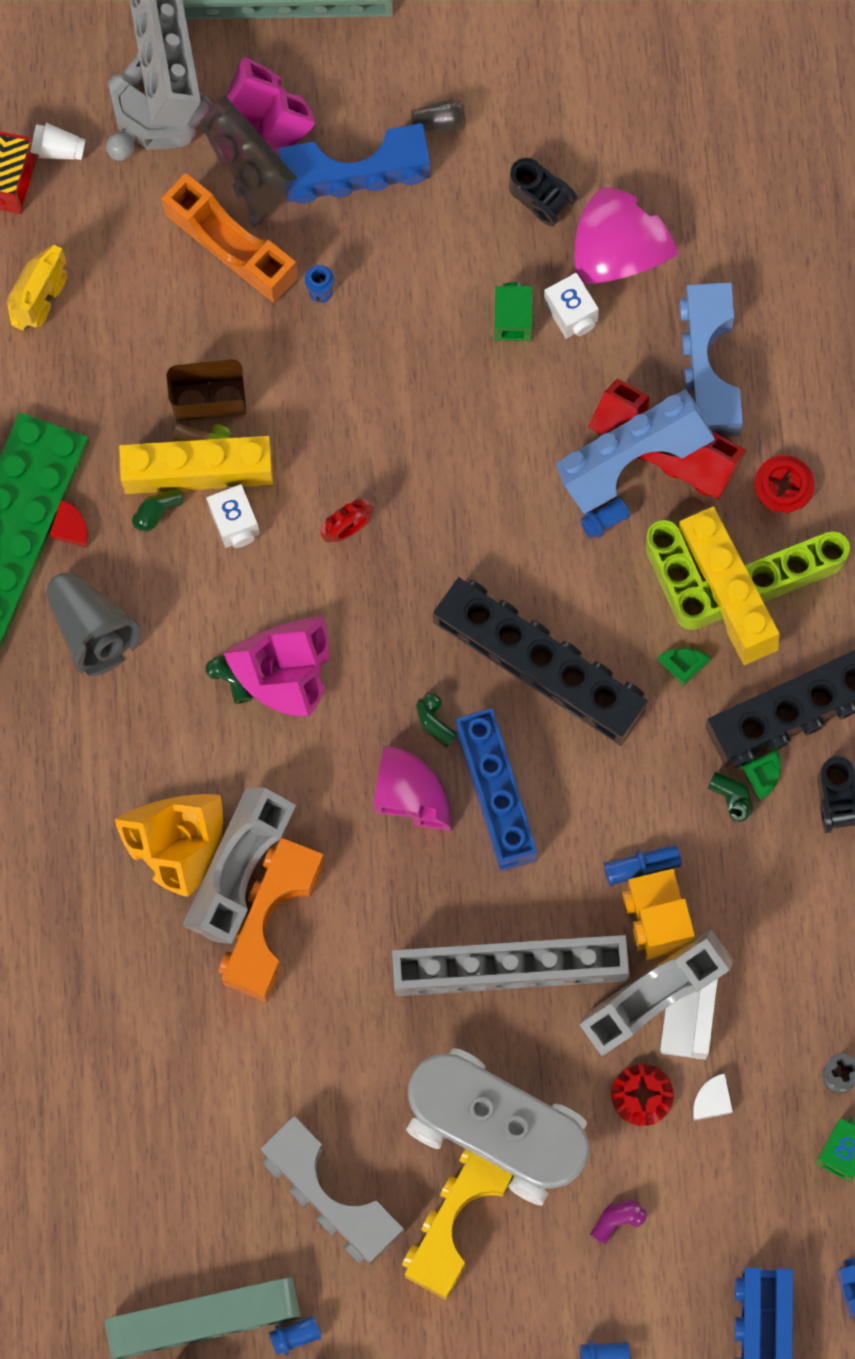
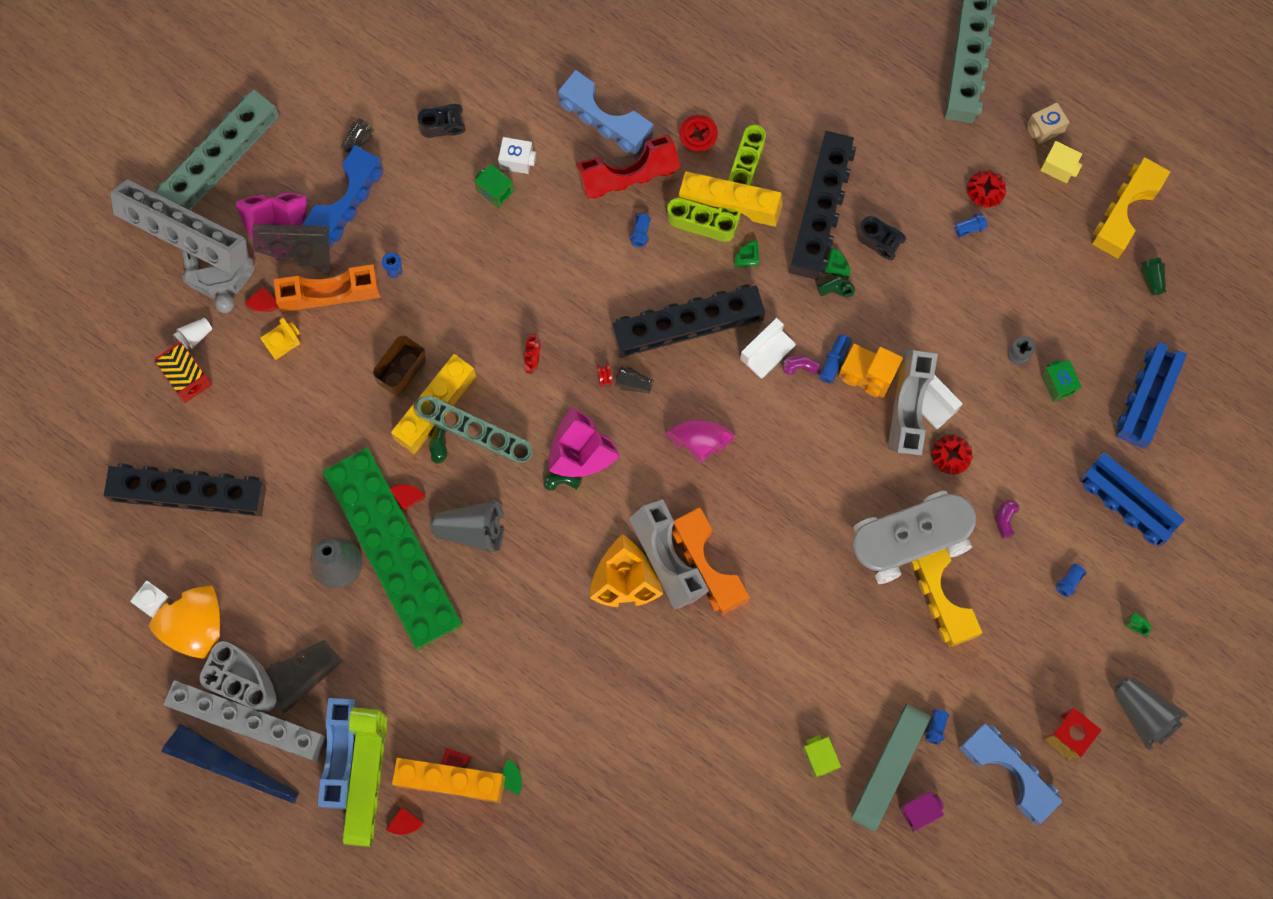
camera: 55 degrees left, 0 degrees up
(39, 278) = (262, 408): yellow slope -> none
(133, 241) = (281, 339): none -> yellow bracket
(149, 1228) = (820, 756): none -> lime brick
(157, 181) = (262, 301): none -> red tile
(188, 433) = (411, 397): medium nougat arm -> none
(195, 549) = (485, 432): none -> sand green beam
(233, 517) = (480, 406): white brick -> none
(365, 1227) = (845, 650): light grey arch -> none
(393, 621) = (604, 375): none -> red bush
(414, 658) = (634, 381): none -> clear smoke cone
(430, 721) = (673, 400): dark green arm -> none
(496, 790) = (737, 396): blue brick -> none
(510, 965) = (835, 463): light grey brick -> none
(586, 778) = (767, 349): none -> white panel
(602, 827) = (798, 362): none -> magenta arm
(619, 238) = (503, 103): dark pink brick -> none
(668, 427) = (627, 157): medium blue arch -> none
(712, 1099) = (982, 422): white tile -> none

